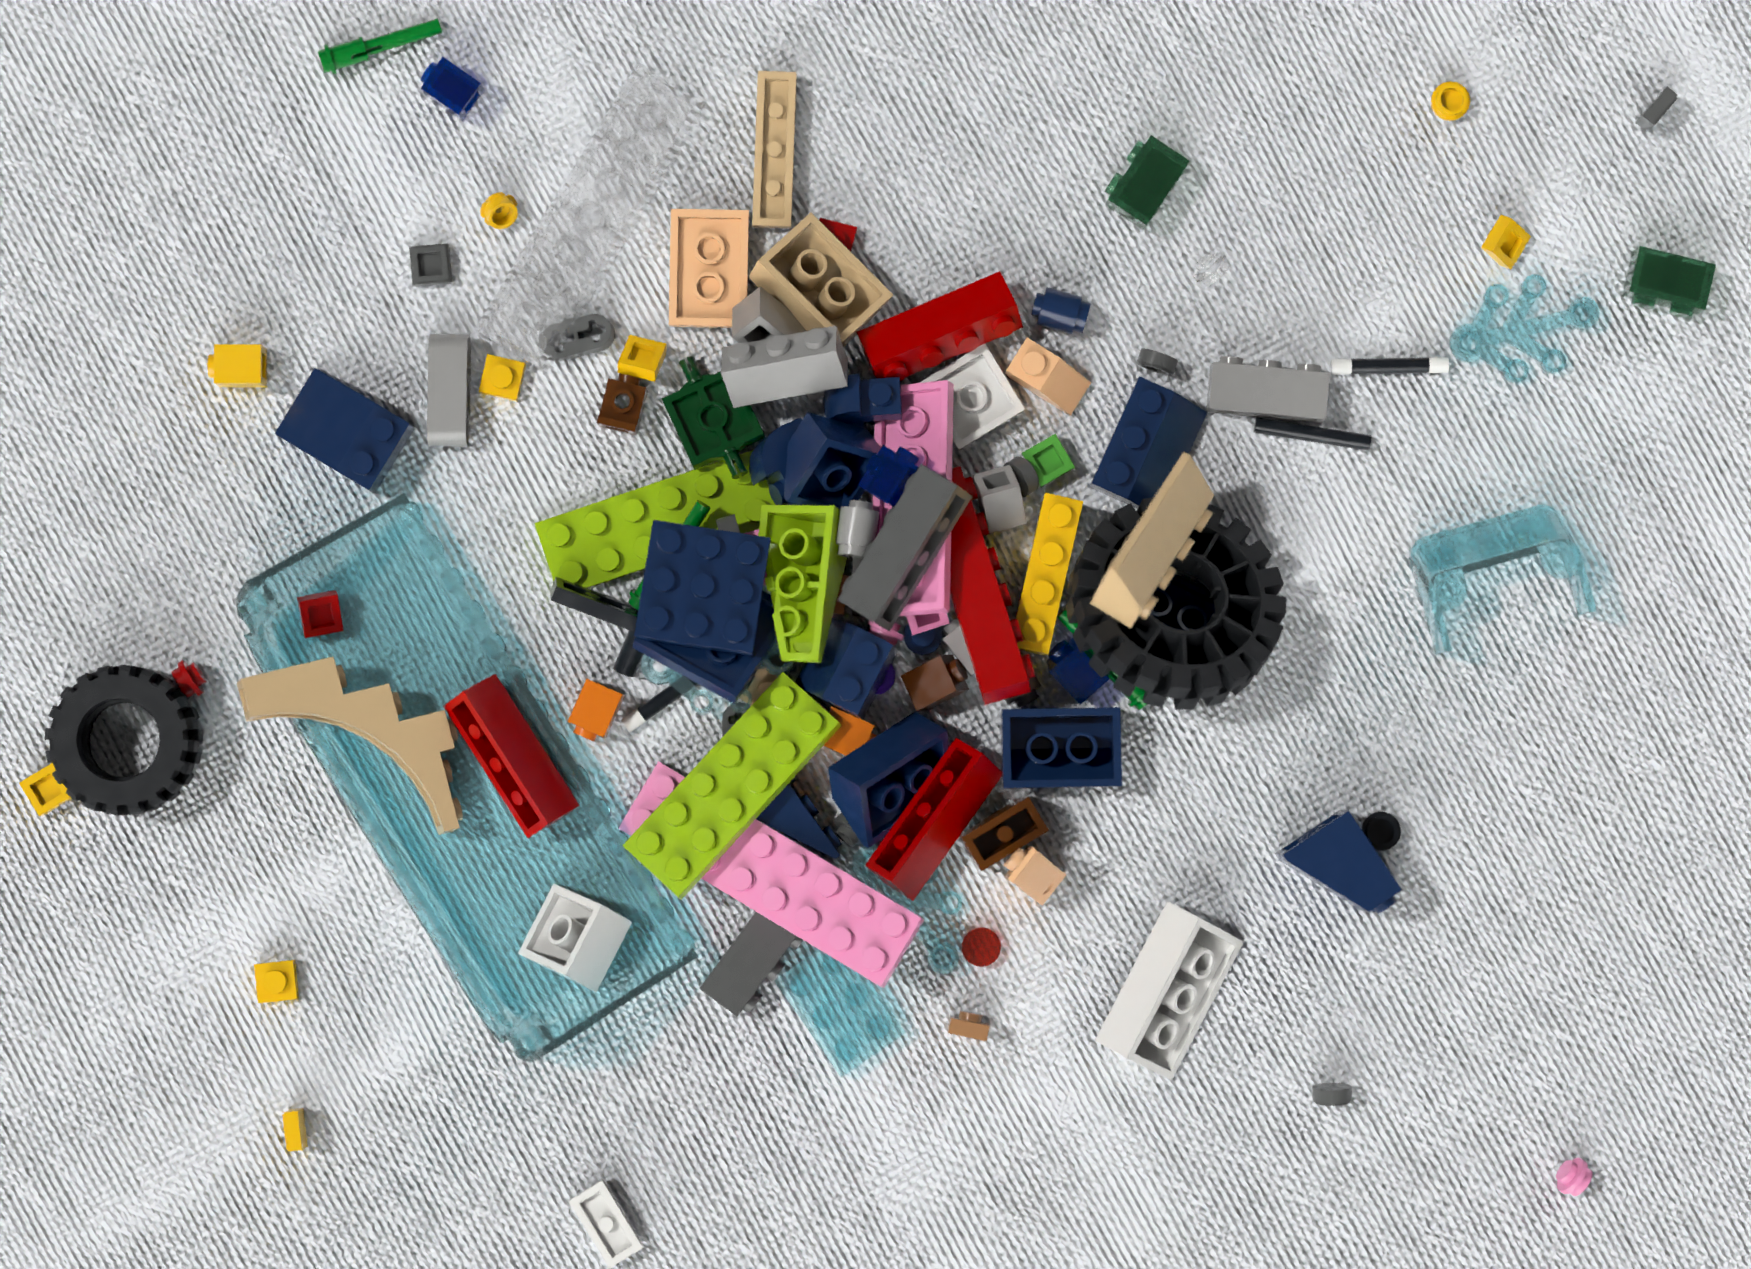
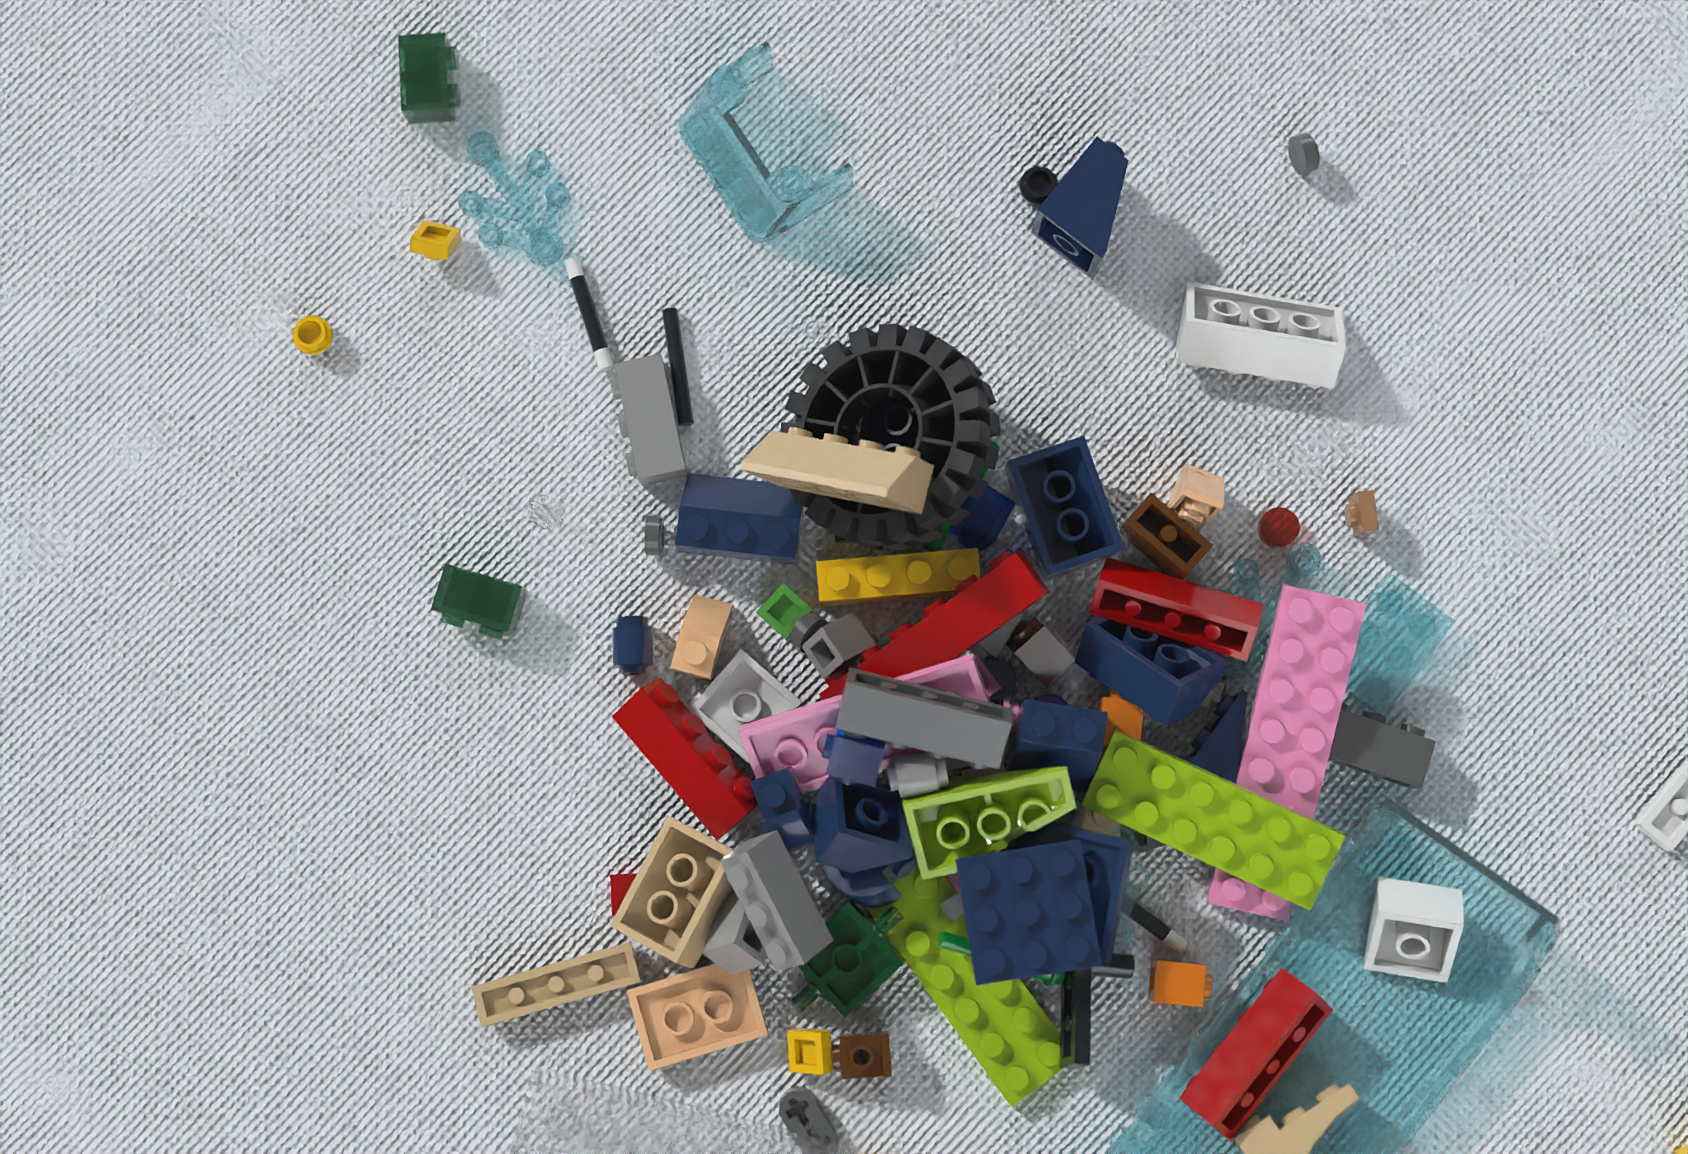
camera: 105 degrees left, 5 degrees down
(1657, 109) = (263, 138): dark grey tile -> none

